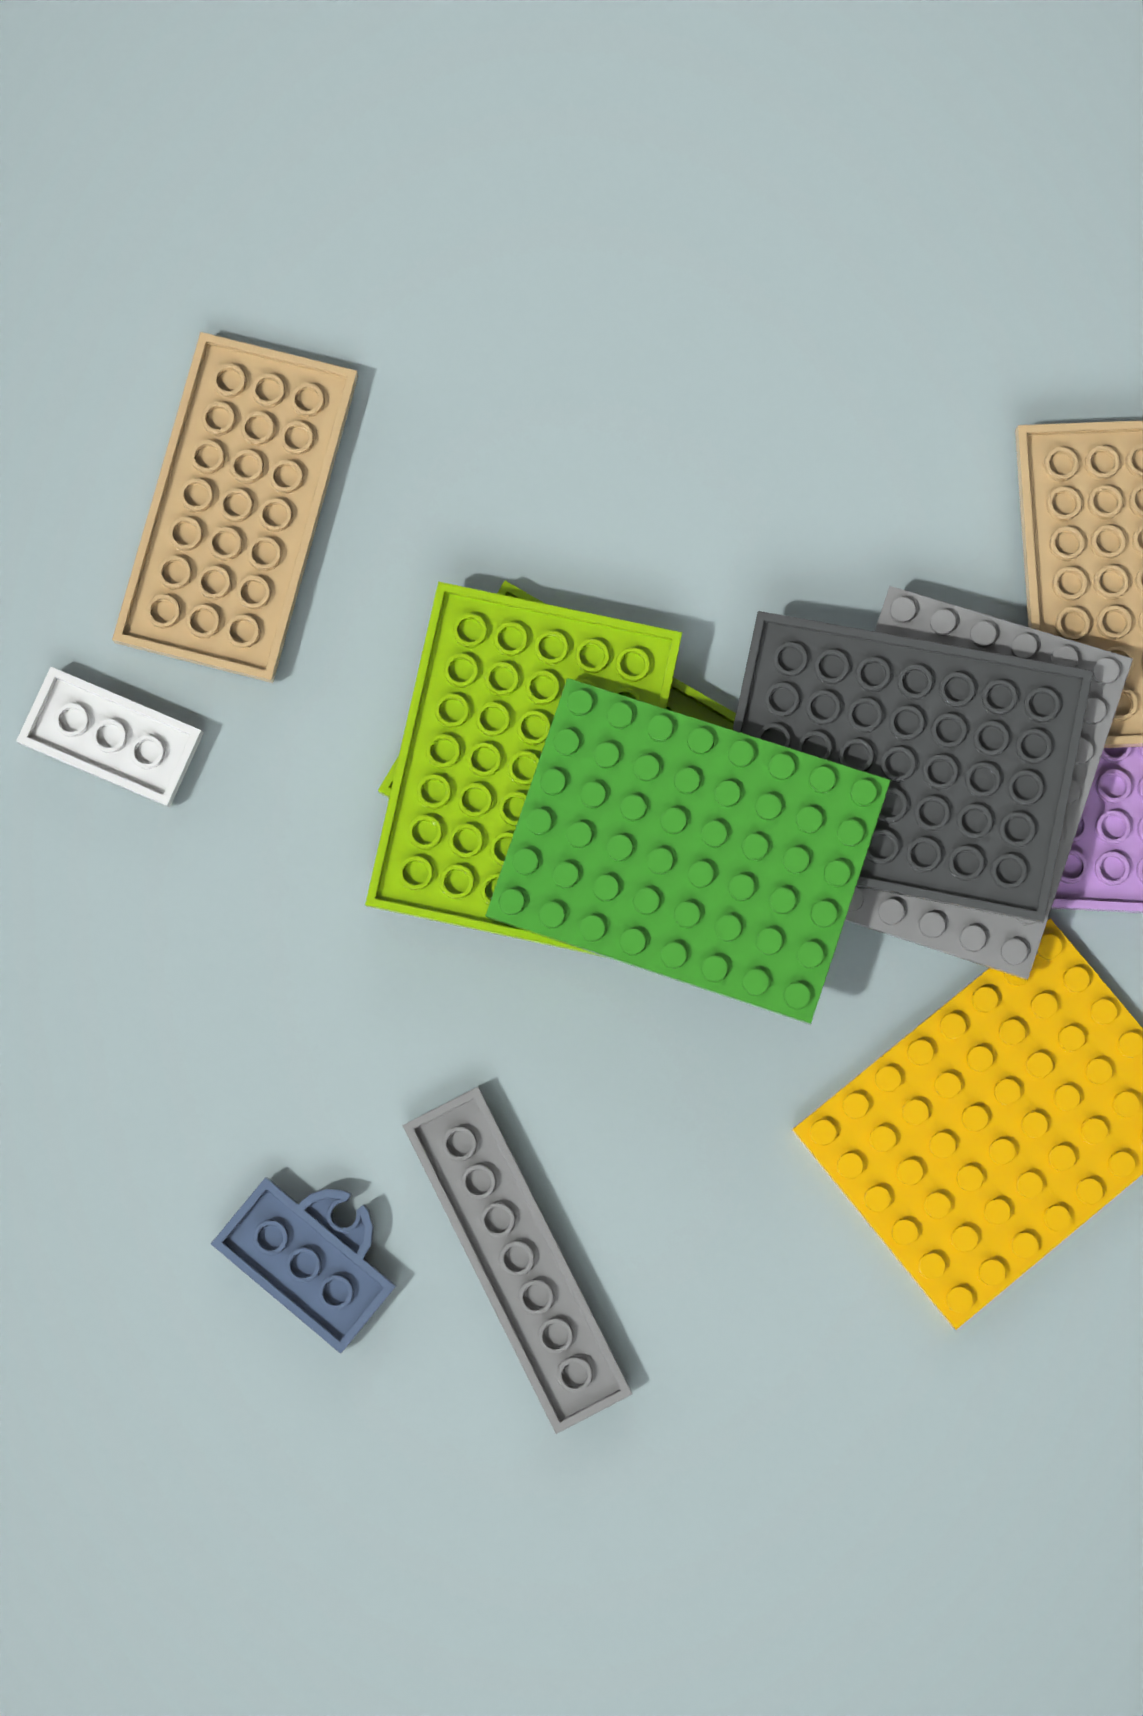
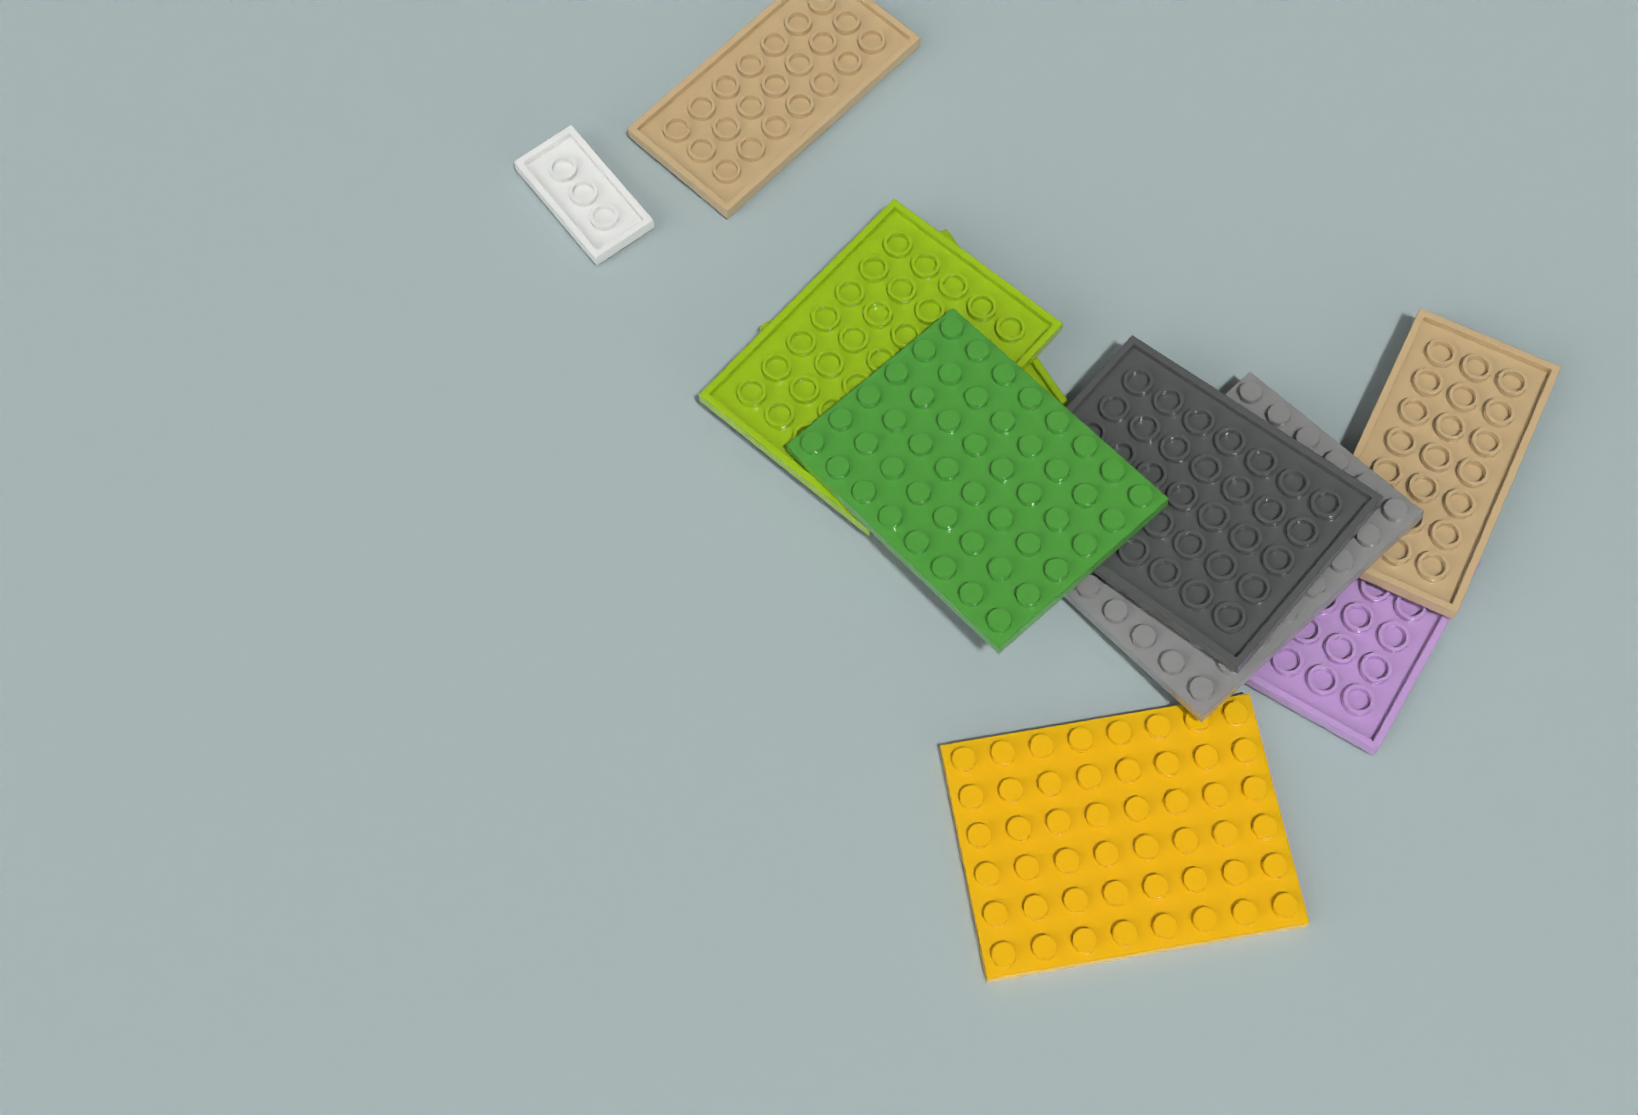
camera: 30 degrees right, 15 degrees down
(308, 1259) = (495, 638): sand blue plate -> none
(517, 1260) = (656, 730): light grey plate -> none

